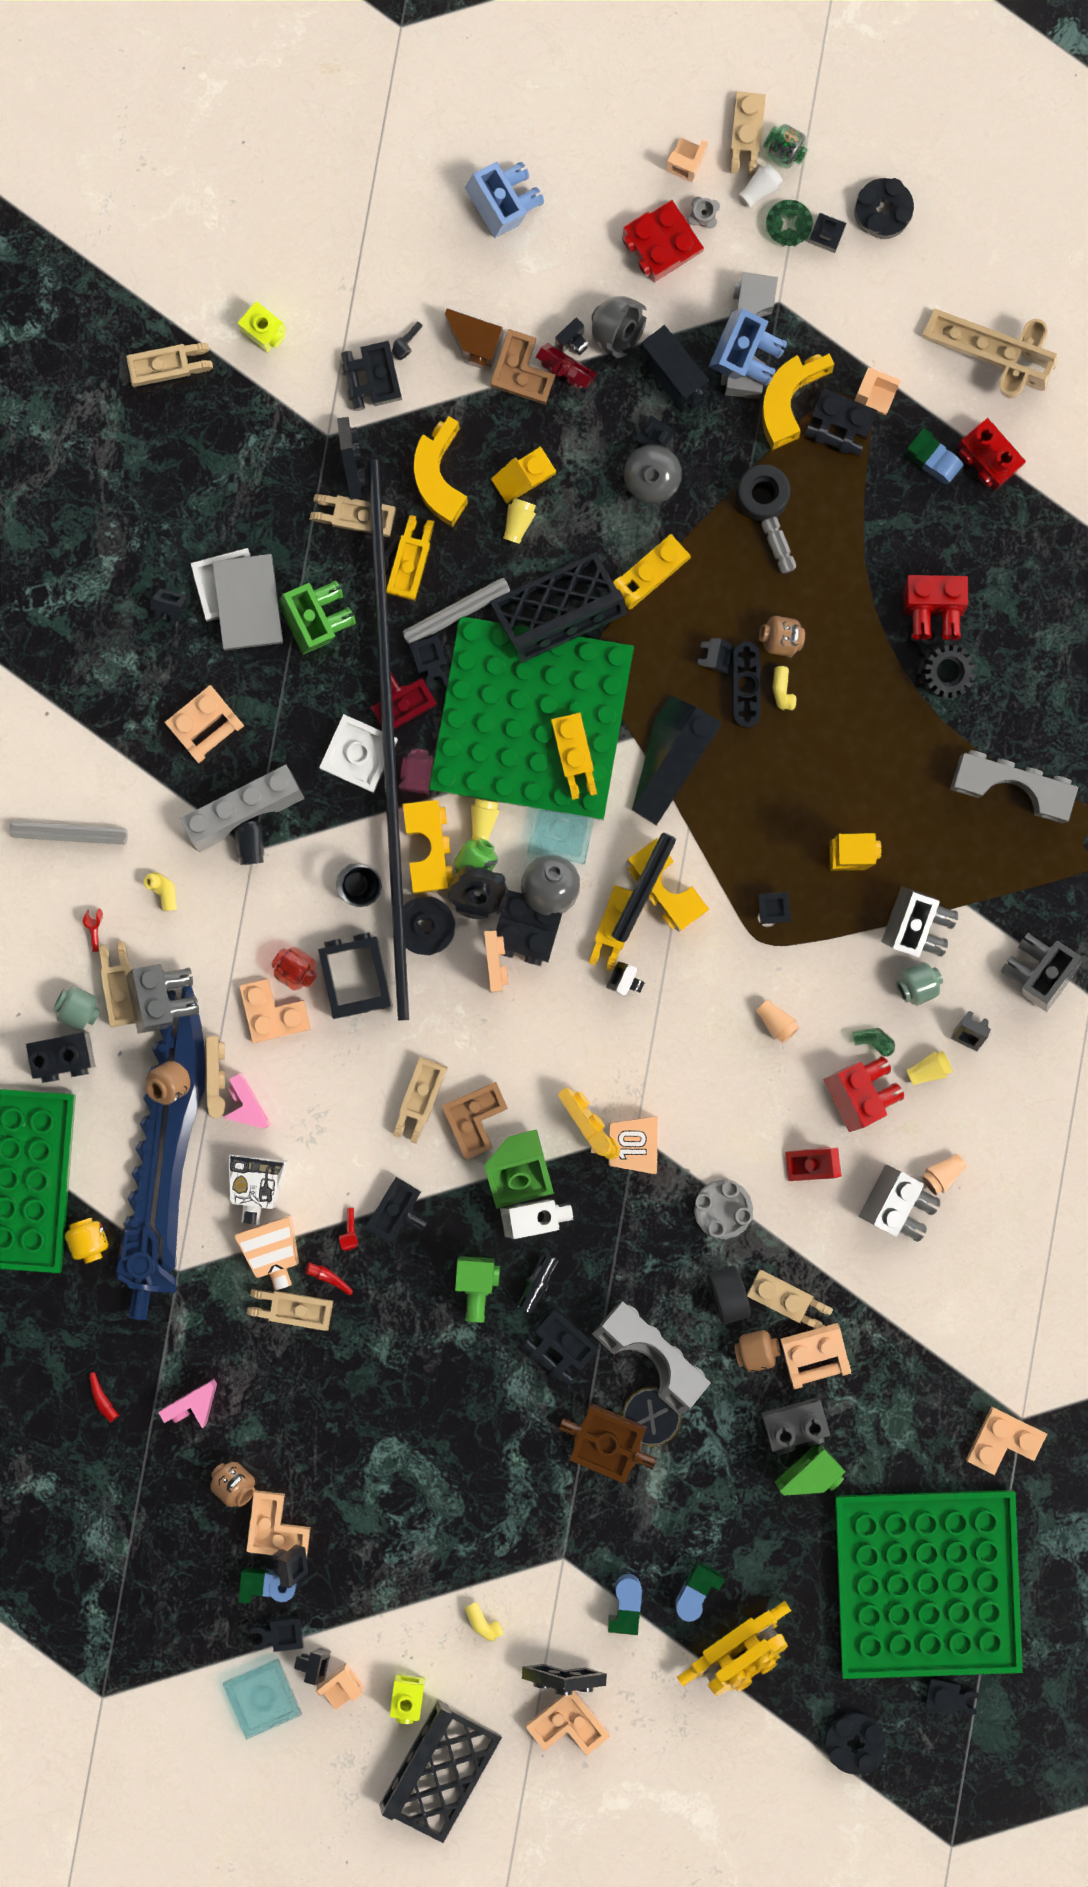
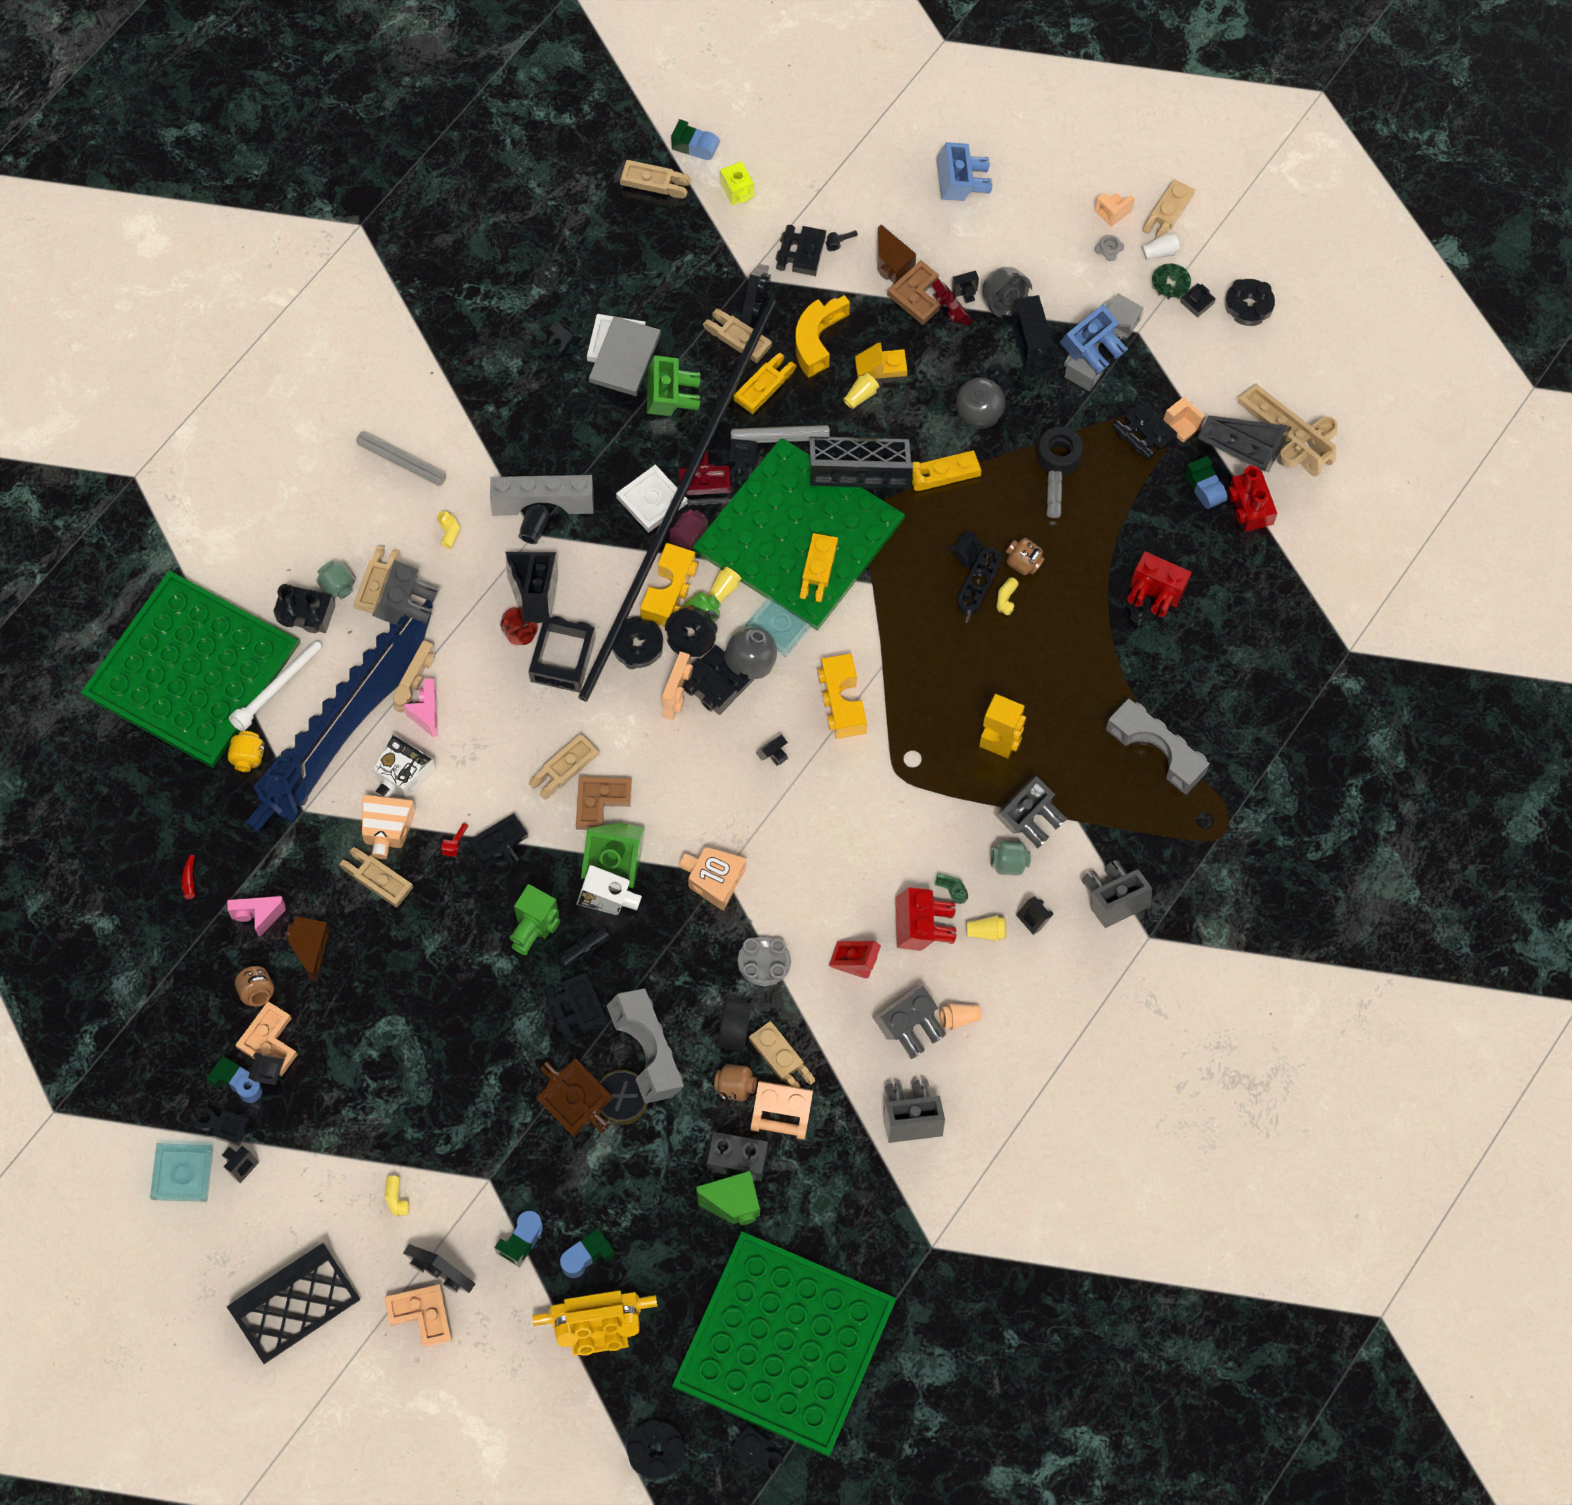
camera: 25 degrees right, 20 degrees down
(66, 1208) = (242, 717): none -> white piece
(93, 925) = (381, 530): red hand -> none
(167, 1082) = (374, 657): medium nougat head -> none
(188, 295) = (694, 141): none -> leg
(197, 717) = (543, 422): light nougat plate -> none
(261, 1414) = (308, 942): none -> reddish brown slope
(266, 1019) = (478, 657): light nougat plate -> none
(289, 919) = (533, 583): none -> black wedge
(324, 1274) = (418, 866): red helmet -> none
(341, 1687) = (249, 1192): light nougat panel -> none
(356, 891) = (600, 586): black helmet -> none
(407, 1699) = (299, 1227): neon yellow brick -> none
(589, 1123) = (689, 838): yellow hinge -> none
(613, 911) = (787, 709): yellow hinge -> none
(644, 887) = (822, 682): black axle -> none
(661, 241) = (1067, 253): red plate -> none
(674, 748) = (899, 603): black wedge -> none
(774, 908) = (919, 747): black tile -> none
(777, 415) = (1110, 387): yellow arch -> none
(778, 1022) = (880, 837): light nougat cone -> none
(785, 146) = (1193, 228): clear green head -> none
(952, 1305) = (913, 1117): none -> dark grey brick
(955, 388) = (1247, 440): none -> black wedge
(963, 671) = (1129, 643): black tyre -> none
(998, 1434) = (910, 1249): light nougat plate -> none

